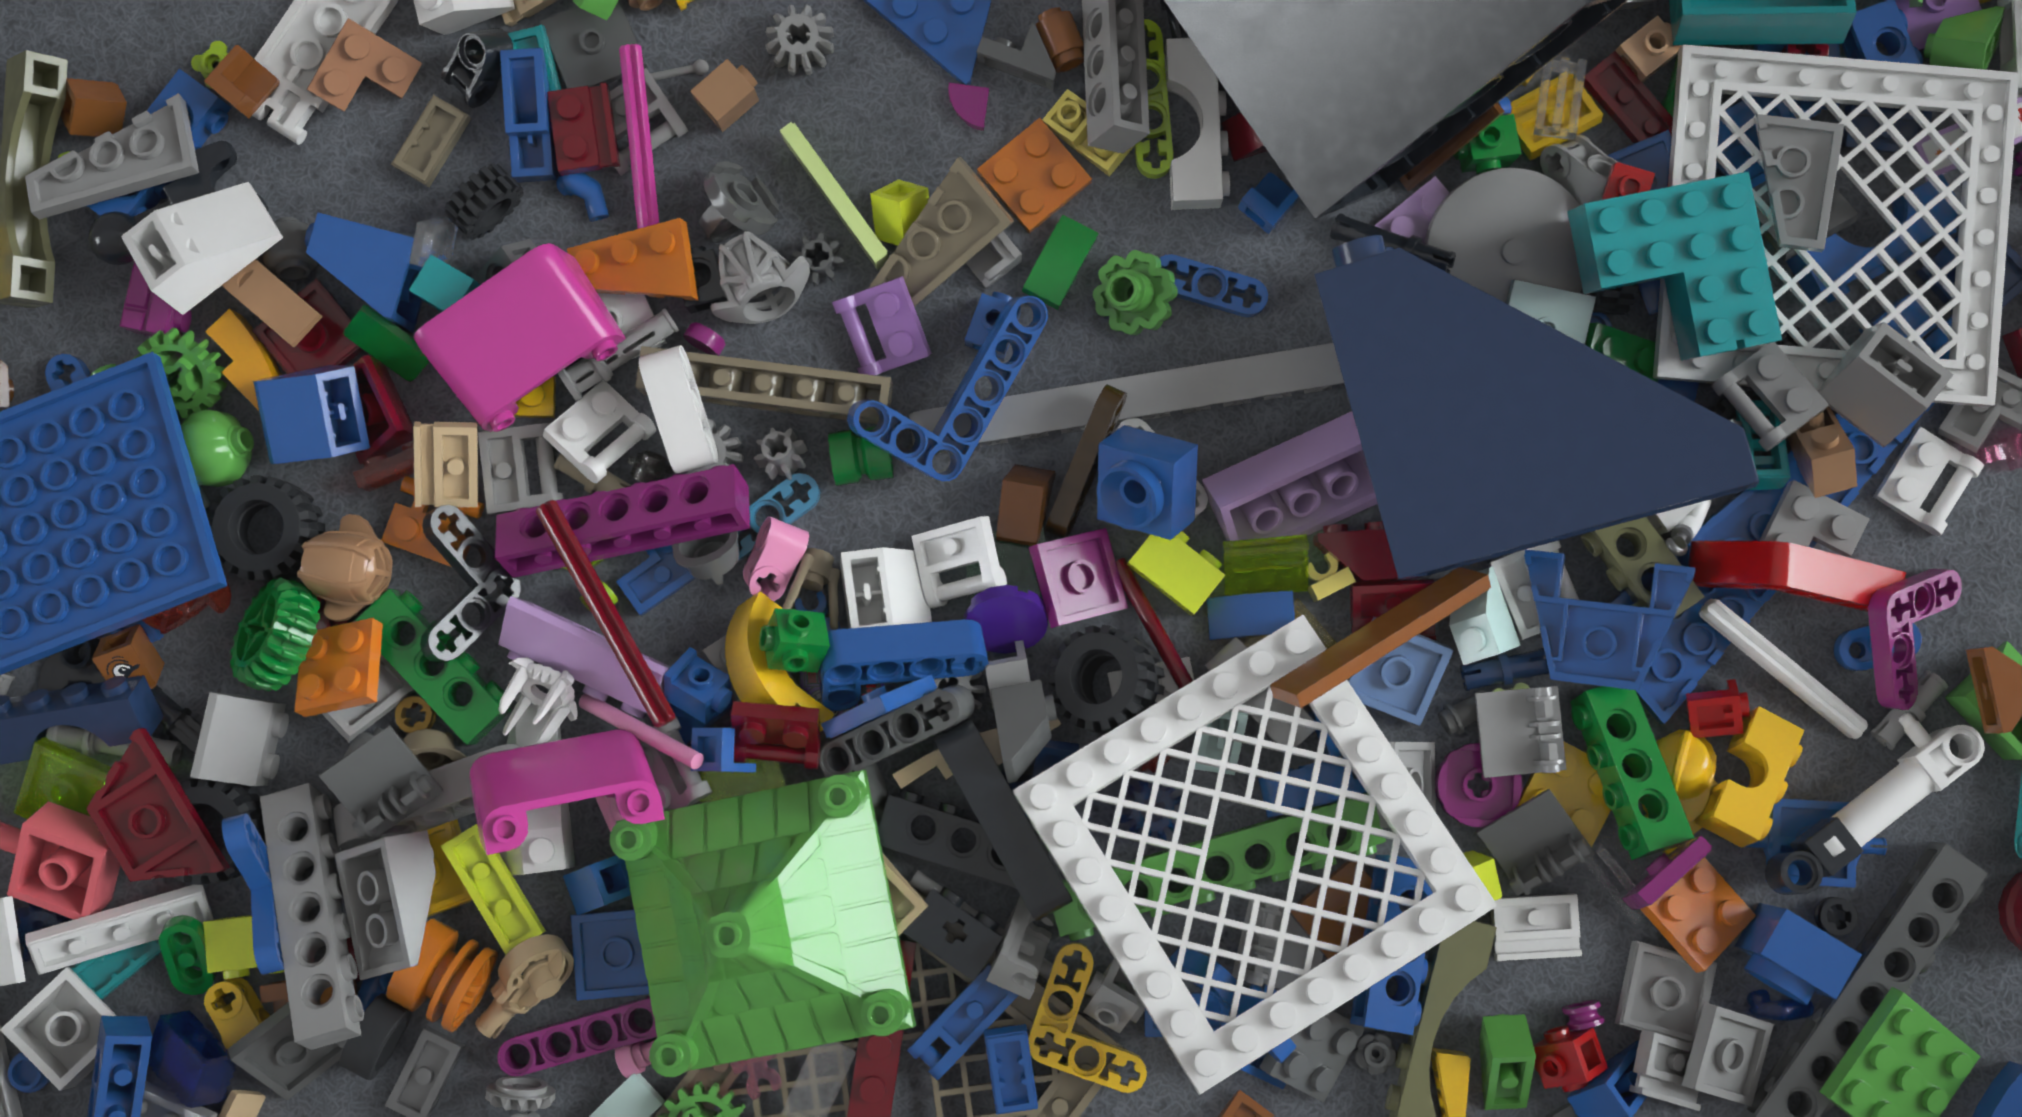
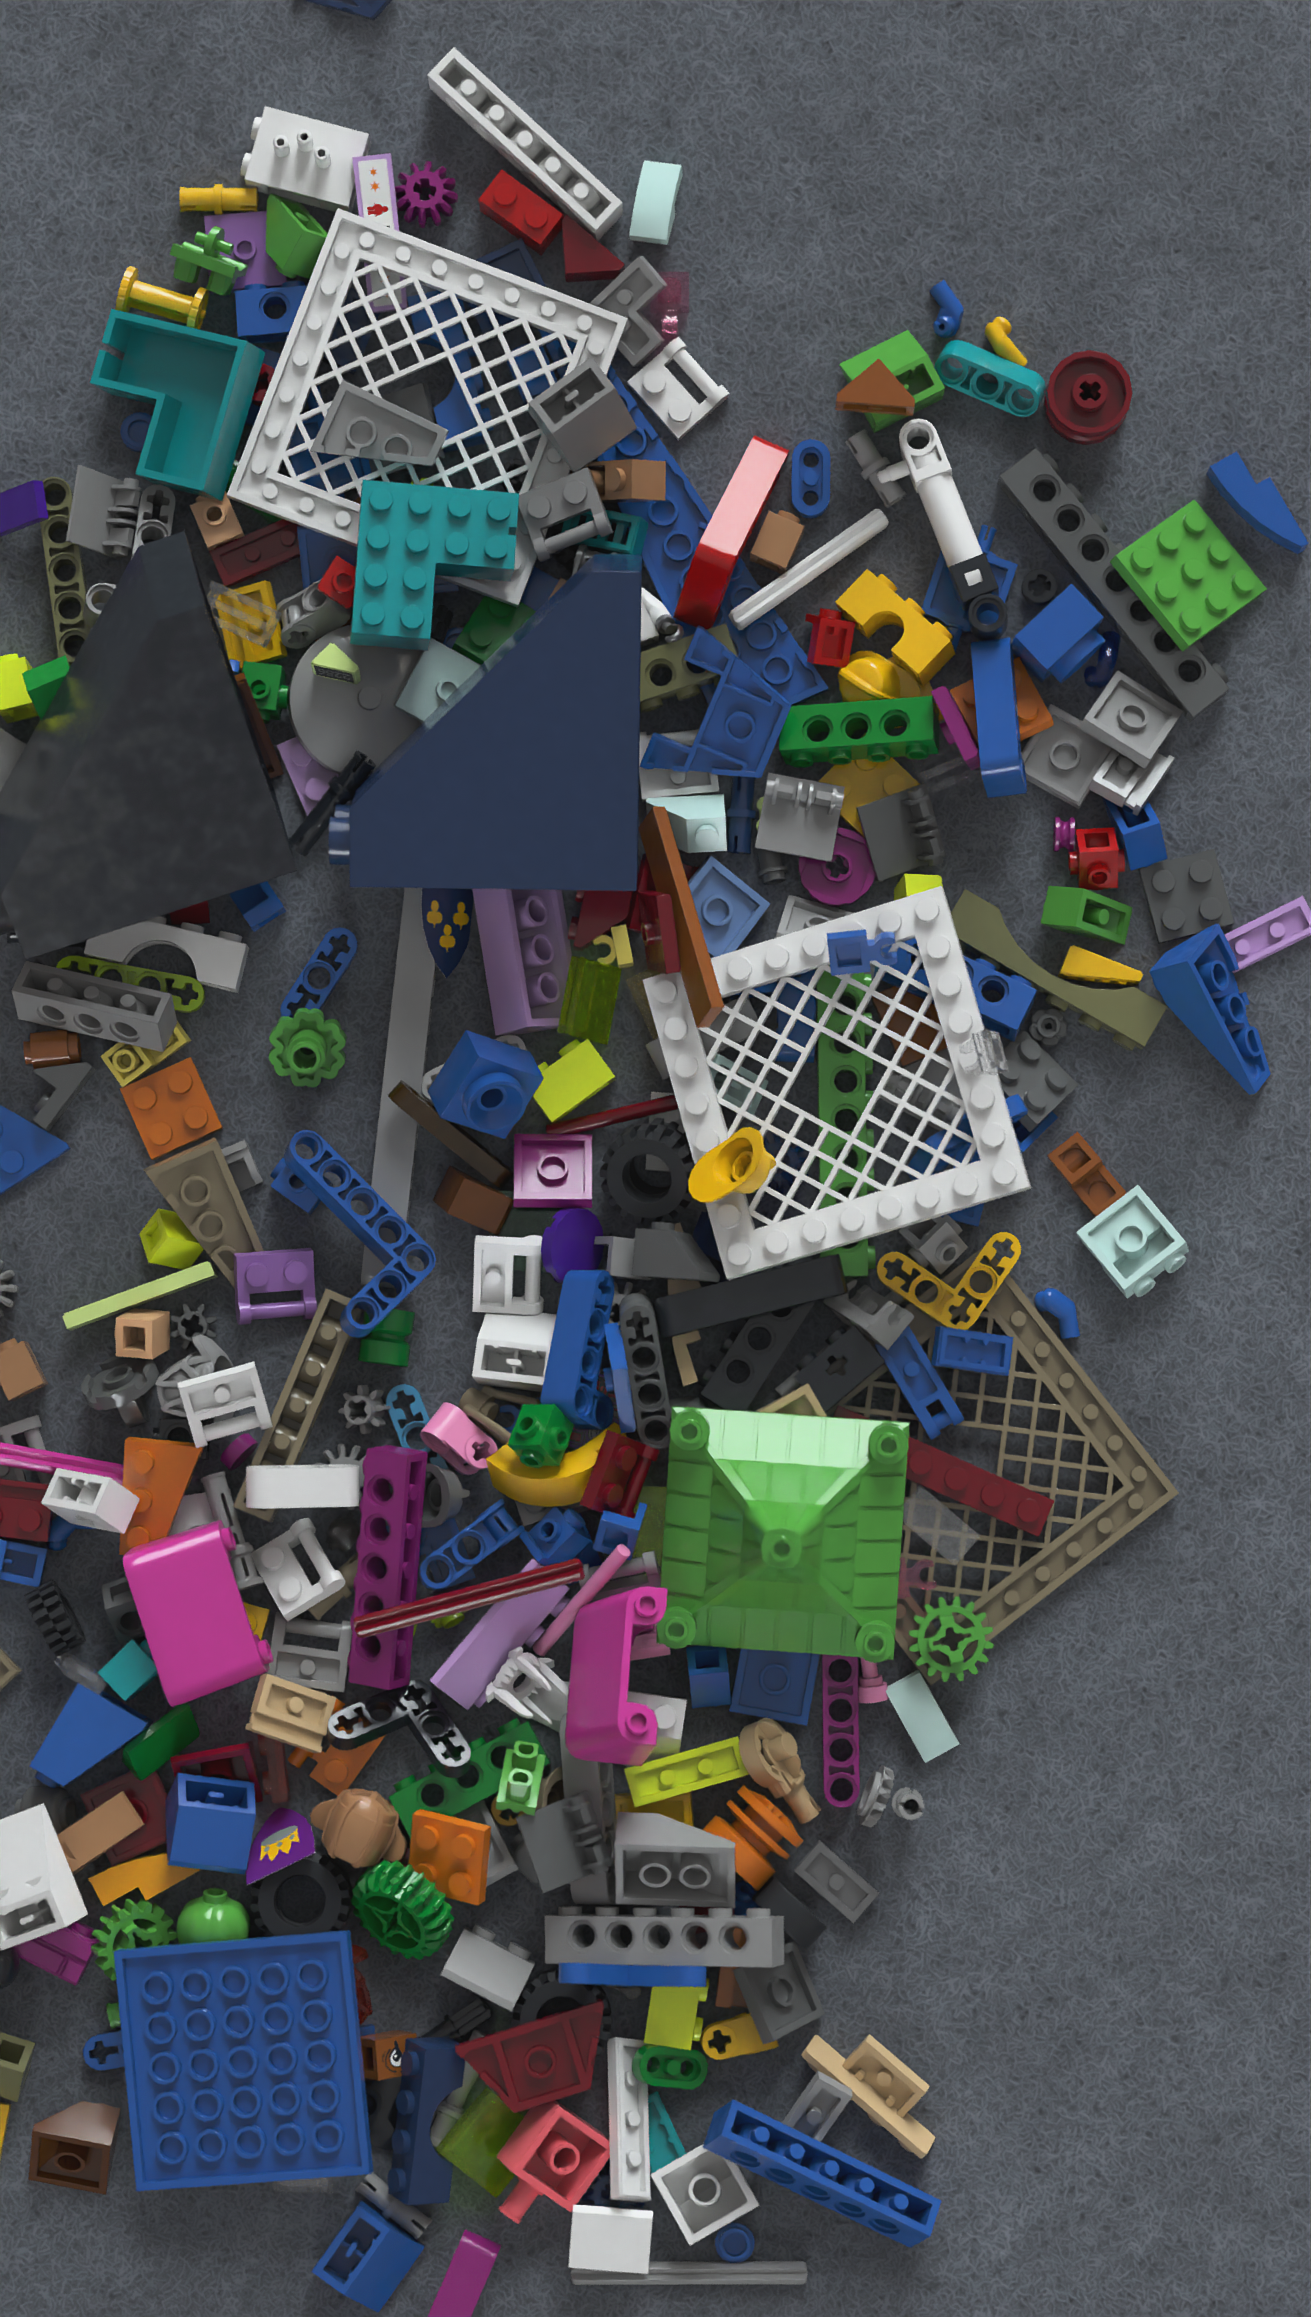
camera: 75 degrees left, 0 degrees up
(190, 1059) = (766, 2080): clear blue brick -> none
(311, 491) = (279, 1843): none -> dark purple sticker
(434, 719) = (521, 1778): none -> bright green hips
(608, 200) = (90, 1500): none -> white brick
(684, 613) = (485, 1532): none -> blue piece
(749, 301) = (222, 1394): none -> white plate
(795, 208) = (142, 1333): none -> light nougat brick
(969, 103) = (87, 1149): magenta tile -> none
(1060, 262) = (259, 1107): green slope -> none
(1132, 764) = (732, 1166): none -> yellow piece
(1249, 614) = (628, 1027): blue slope -> none
(1301, 397) = (446, 924): none -> dark blue sticker
(1334, 1011) = (989, 1051): none -> clear tile
(1358, 617) = (659, 932): none -> dark red plate
(1399, 830) = (852, 952): none -> blue plate
(1536, 927) = (976, 853): white plate -> none
(1539, 204) = (335, 665): none -> yellowish green slope
(1688, 913) = (997, 718): none -> blue beam
(1802, 628) = (777, 541): none -> medium nougat brick
(1804, 518) = (685, 497): light grey plate -> none
(1897, 675) = (853, 473): magenta beam -> none

